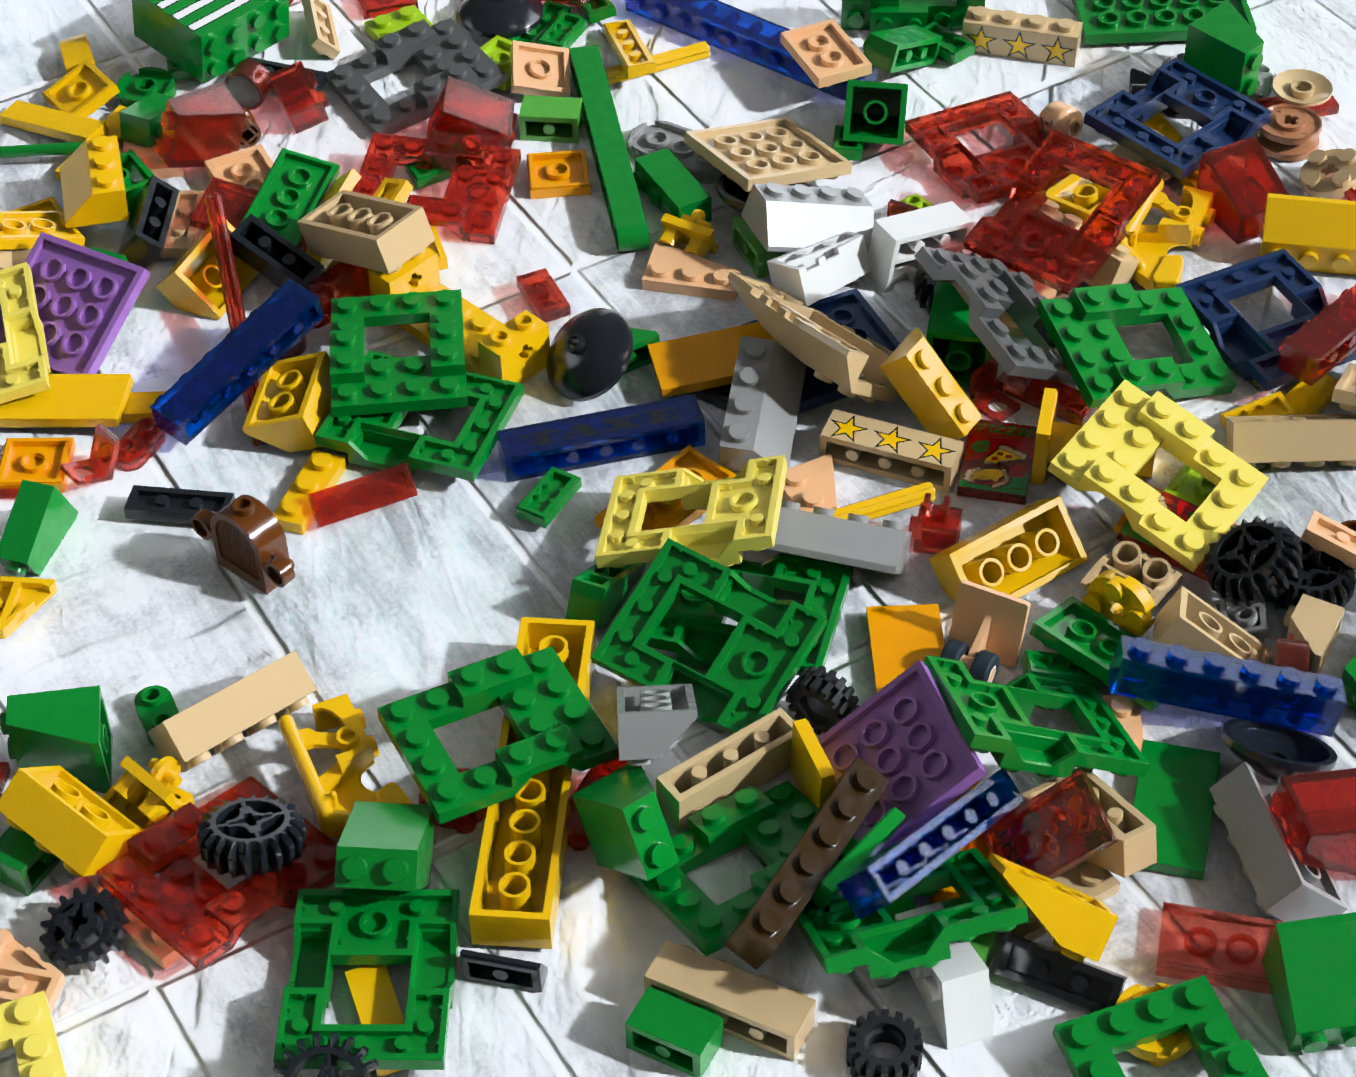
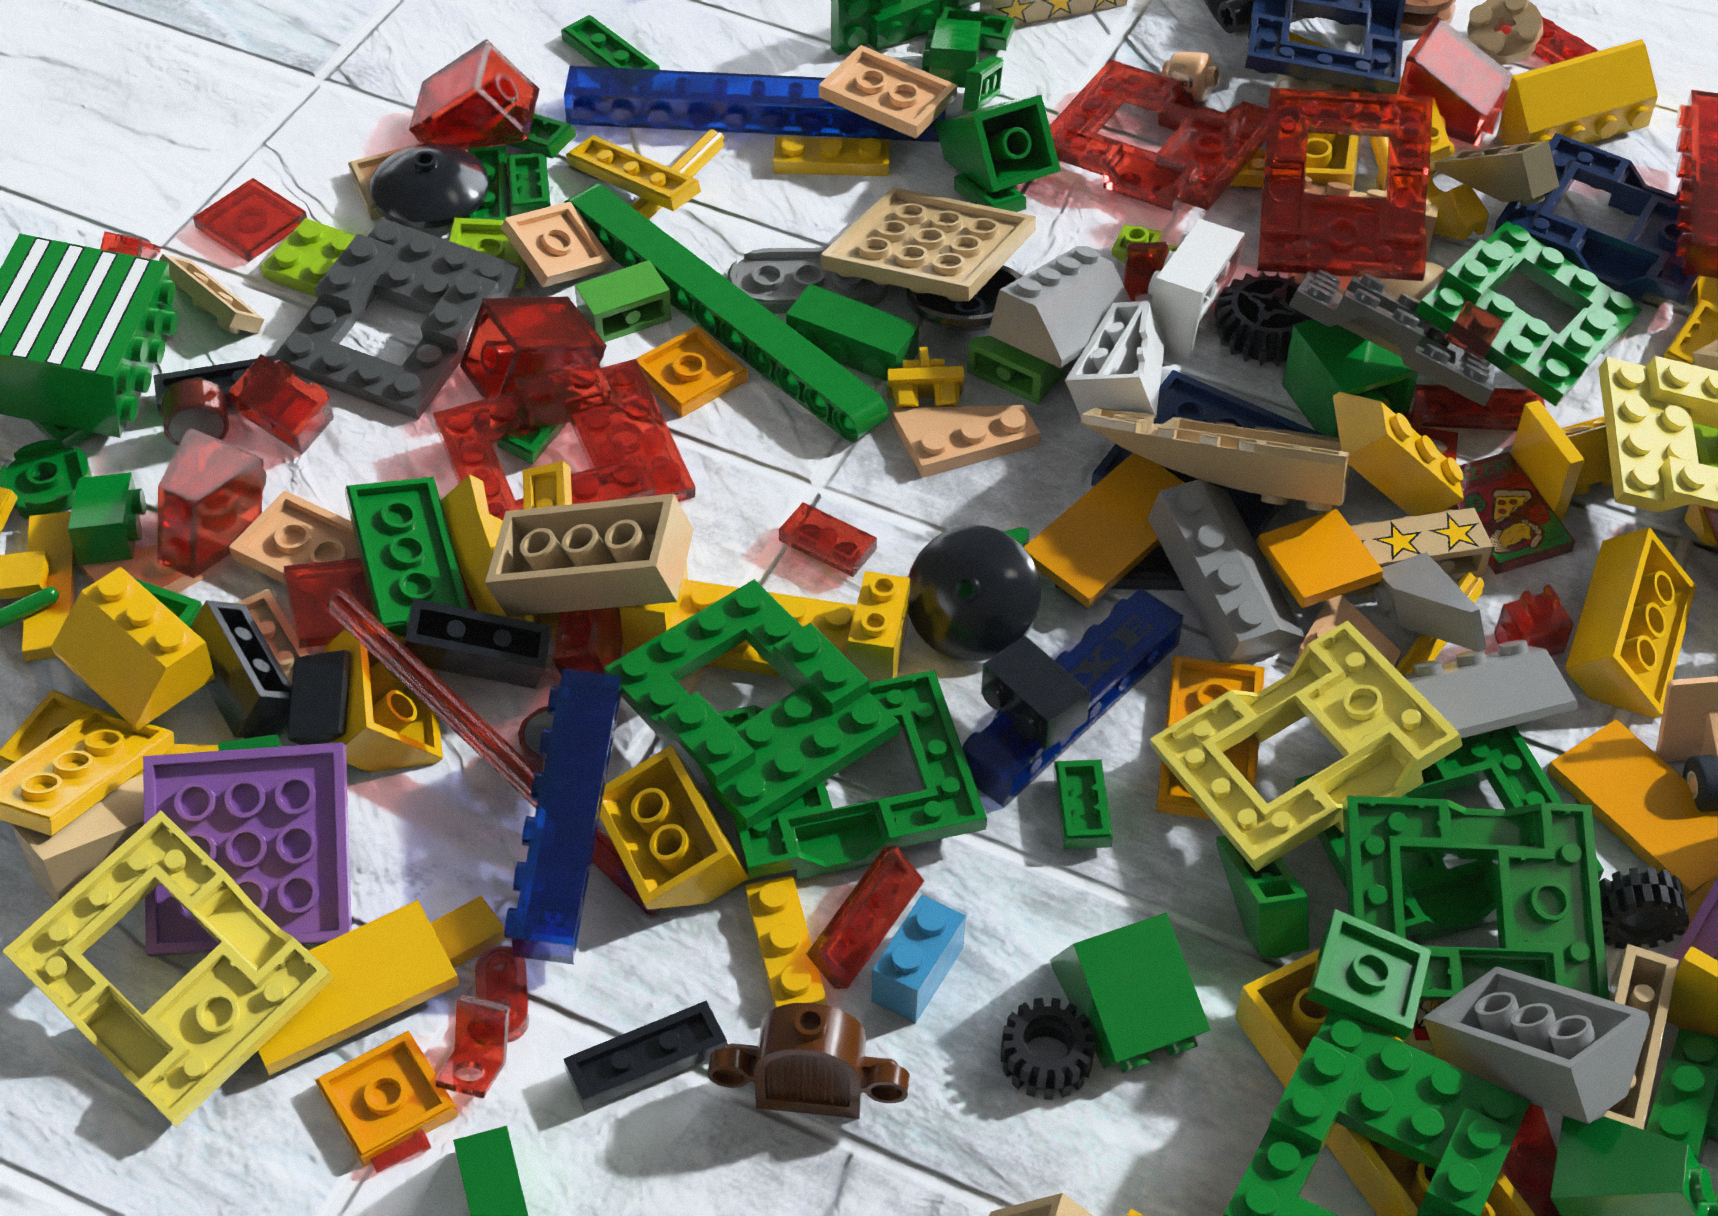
camera: 35 degrees left, 5 degrees up
(170, 251) = (319, 697): none -> black slope
(368, 527) = (918, 958): none -> dark azure brick
(397, 592) = (1041, 1073): none -> black tyre
(467, 596) = (1133, 992): none -> green slope
(559, 415) = (1035, 693): none -> black brick
(592, 639) = (1369, 974): none -> plate
(771, 86) = (831, 156): none -> yellow plate
(822, 423) = (1319, 558): none -> light orange tile
(873, 477) = (1429, 602): none -> light grey slope
(899, 70) = (983, 83): none -> green tile
(1058, 332) = (1475, 330): none -> clear red tile
(1205, 255) = (1505, 172): none -> dark tan slope

